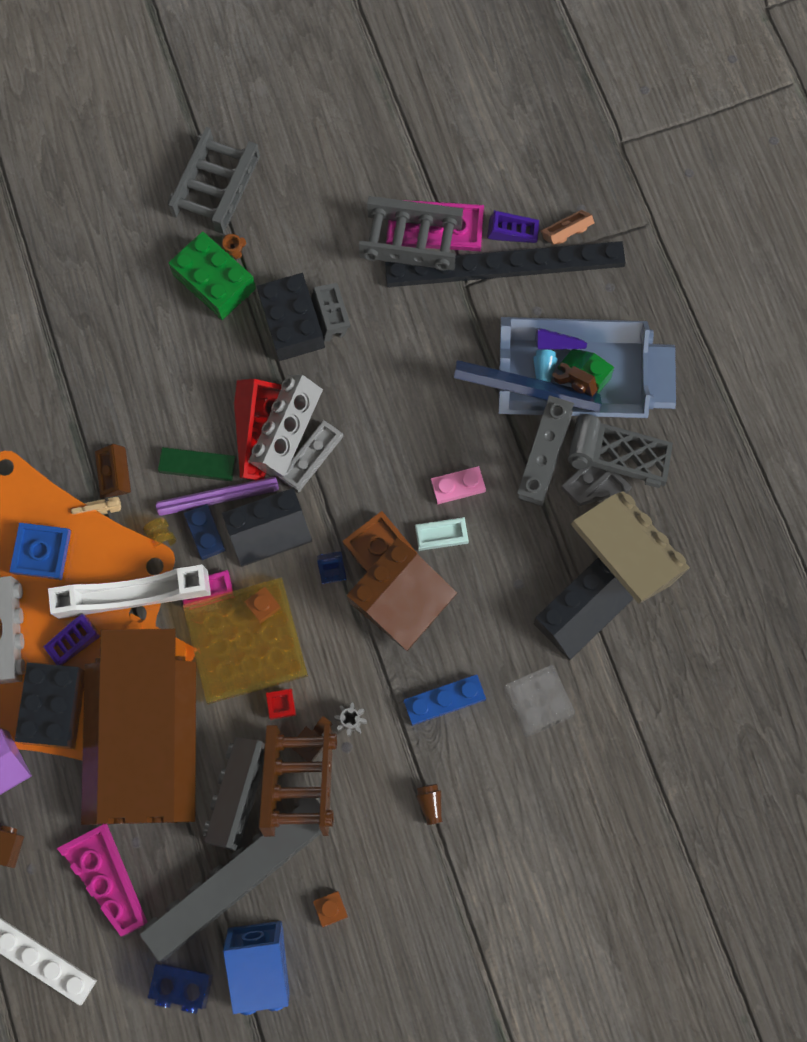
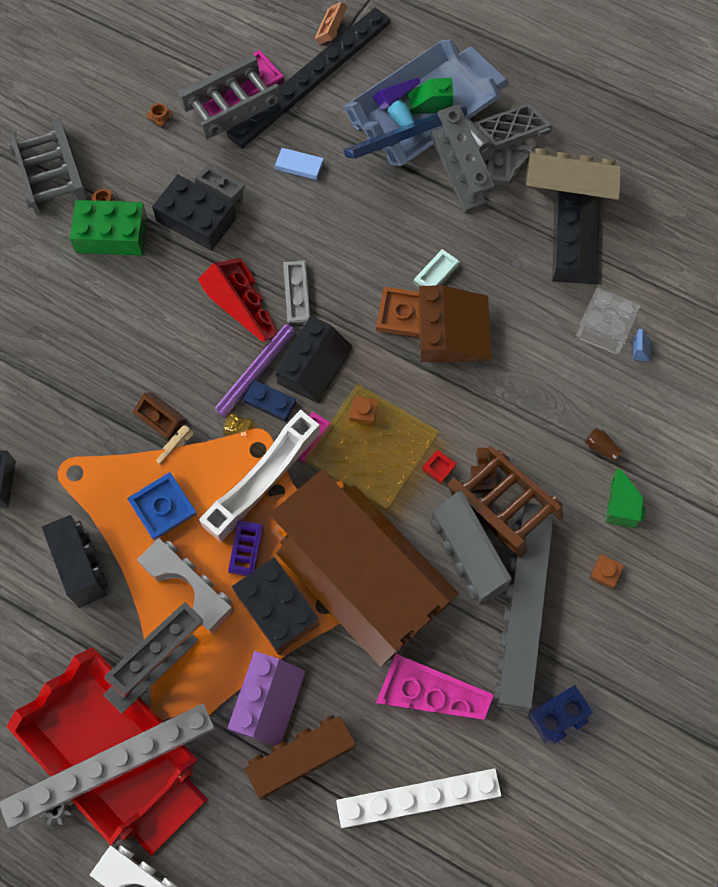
camera: 45 degrees left, 5 degrees down
(197, 464) = (219, 361): dark green tile -> none
(256, 968) = (600, 651): blue slope -> none
(285, 425) = (262, 283): light grey brick -> none
(331, 567) = (383, 352): clear blue slope -> none
(346, 195) = (159, 114): none -> dark orange plate
(352, 712) = (502, 431): light grey gear -> none
(397, 867) = (624, 502): none -> green slope
(419, 340) = (299, 163): none -> light blue tile
(444, 700) = (544, 373): blue plate -> none
(458, 485) = (416, 233): bright pink plate -> none
(504, 234) = (280, 51): dark purple slope -> none
(549, 749) = (641, 346): none -> medium blue slope
(580, 380) = (434, 103): reddish brown plate -> none

